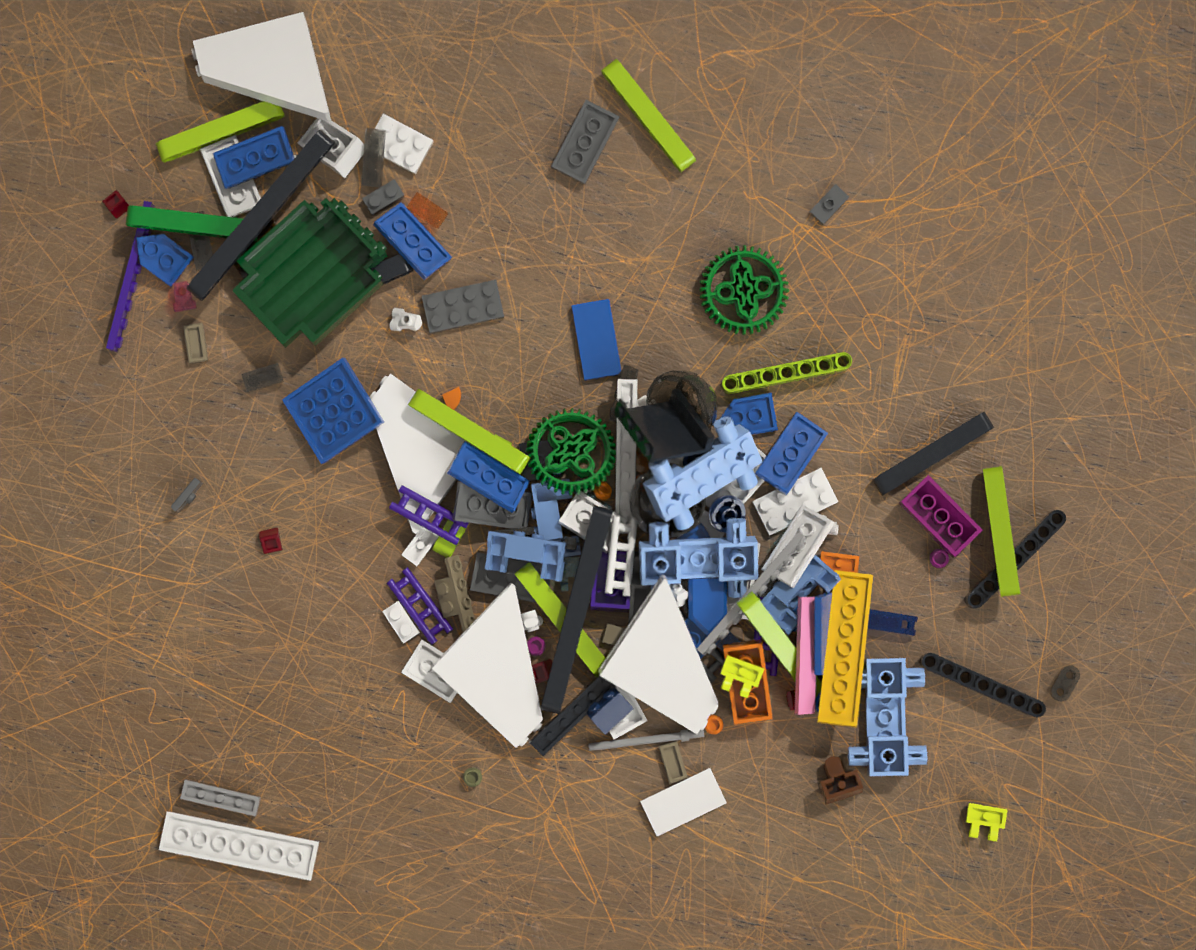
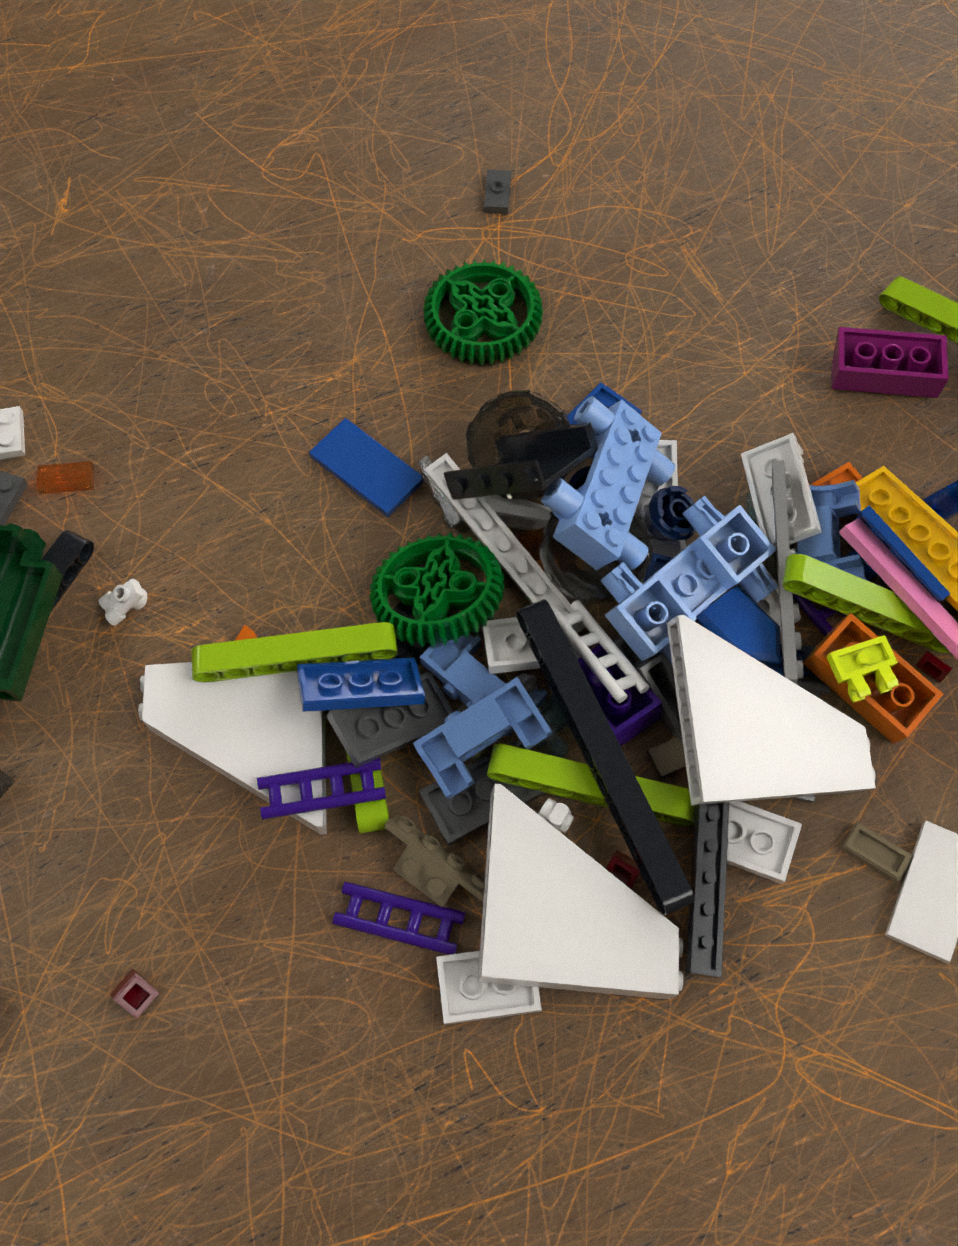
camera: 40 degrees left, 20 degrees down
(333, 410) = (101, 762): blue plate -> none
(401, 622) = (391, 958): white plate -> none
(412, 240) = (68, 513): blue tile -> none
(420, 546) = (340, 840): white plate -> none
(463, 306) = (182, 542): dark grey plate -> none
(472, 777) = (654, 1089): olive plate -> none
(536, 646) = (589, 844): magenta plate -> none
(585, 142) = (195, 300): dark grey plate -> none
(603, 492) = (508, 608): orange plate -> none
(609, 710) = (750, 844): brick -> none
(648, 115) = (244, 235): lime beam -> none
(683, 735) = (857, 809): light grey bar -> none
(714, 724) = (882, 765): orange plate -> none
(778, 509) = (721, 469): white plate -> none
(791, 453) = (680, 417): blue tile -> none
(794, 367) = (602, 348): lime beam -> none
(933, 453) = (817, 320): black beam -> none
(939, 558) = (927, 406): magenta plate -> none

